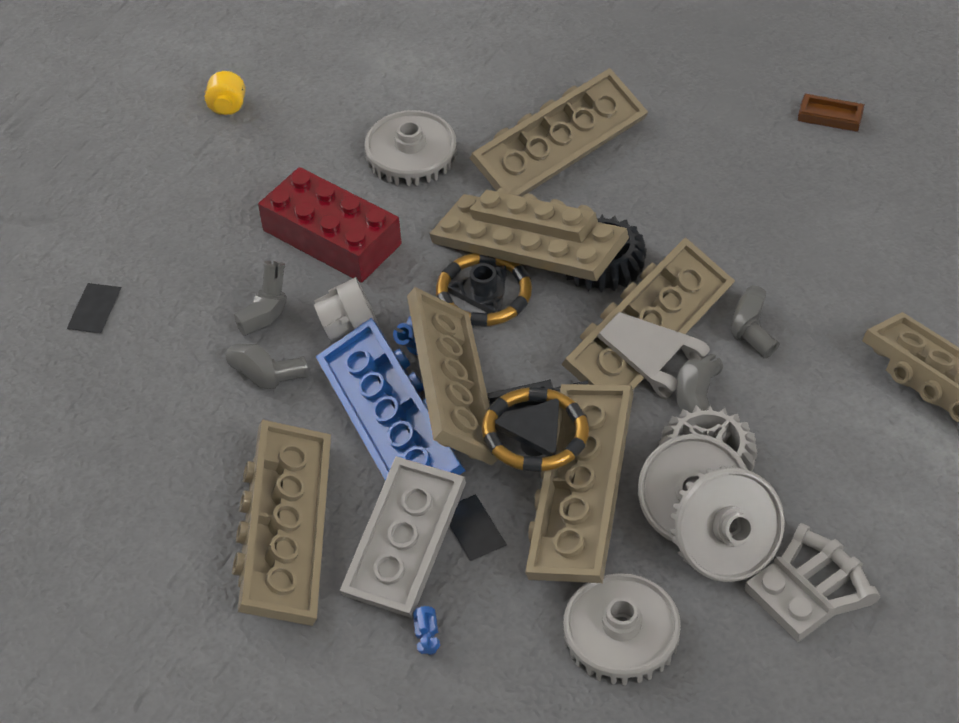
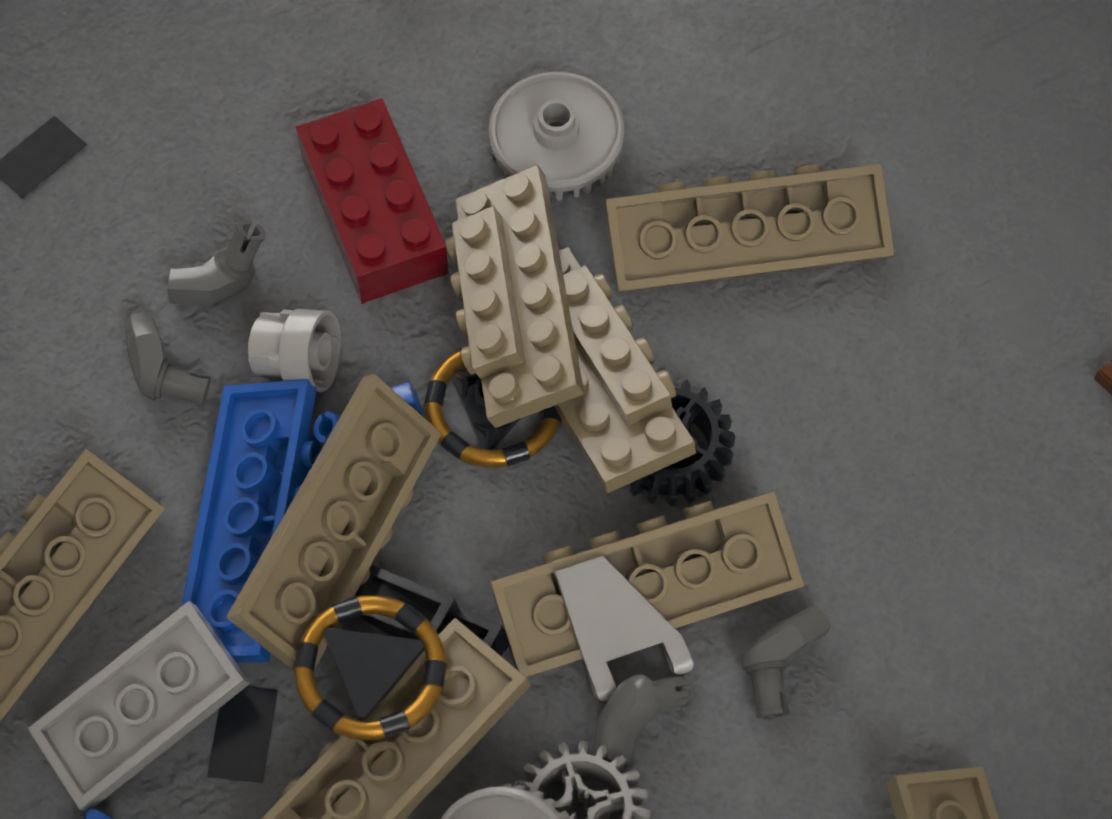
camera: 30 degrees right, 15 degrees up
(461, 221) = (513, 298): none -> dark tan plate

